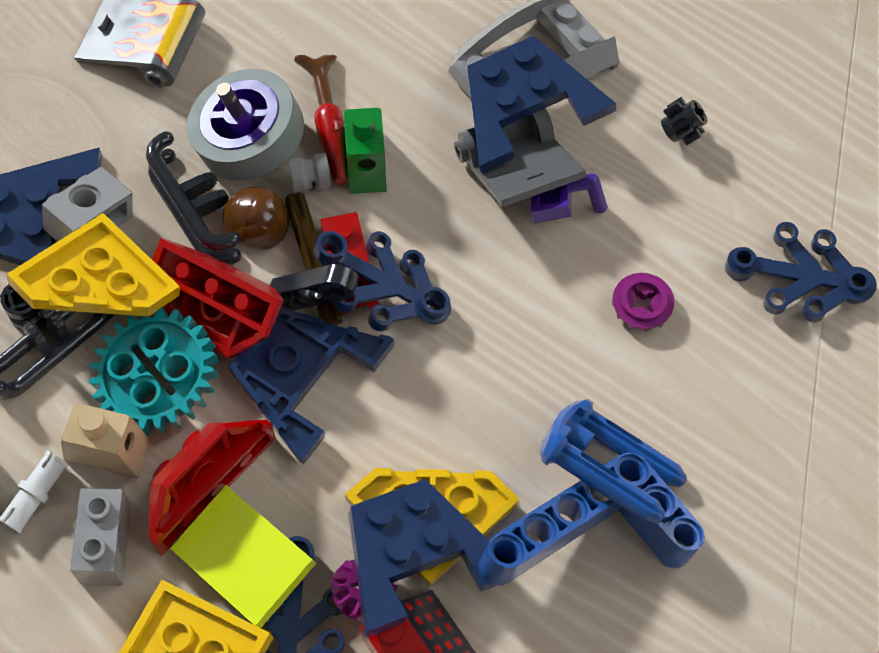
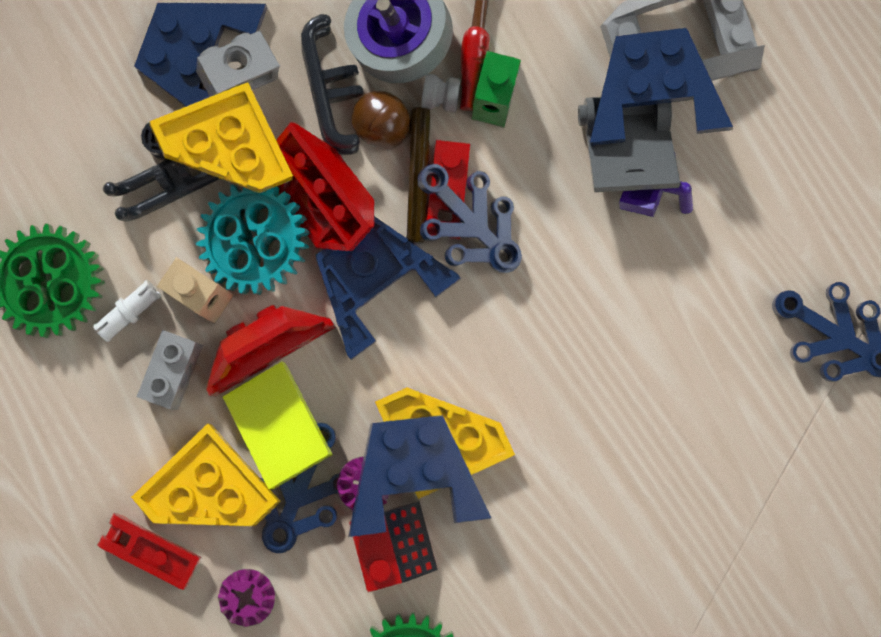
camera: 25 degrees right, 20 degrees up
(316, 287) = (406, 213): black beam -> none
(571, 436) = (573, 416): blue piece -> none
(586, 513) = (562, 488): blue beam -> none
(644, 286) = (694, 297): magenta gear -> none
(684, 121) = (793, 152): black gear -> none

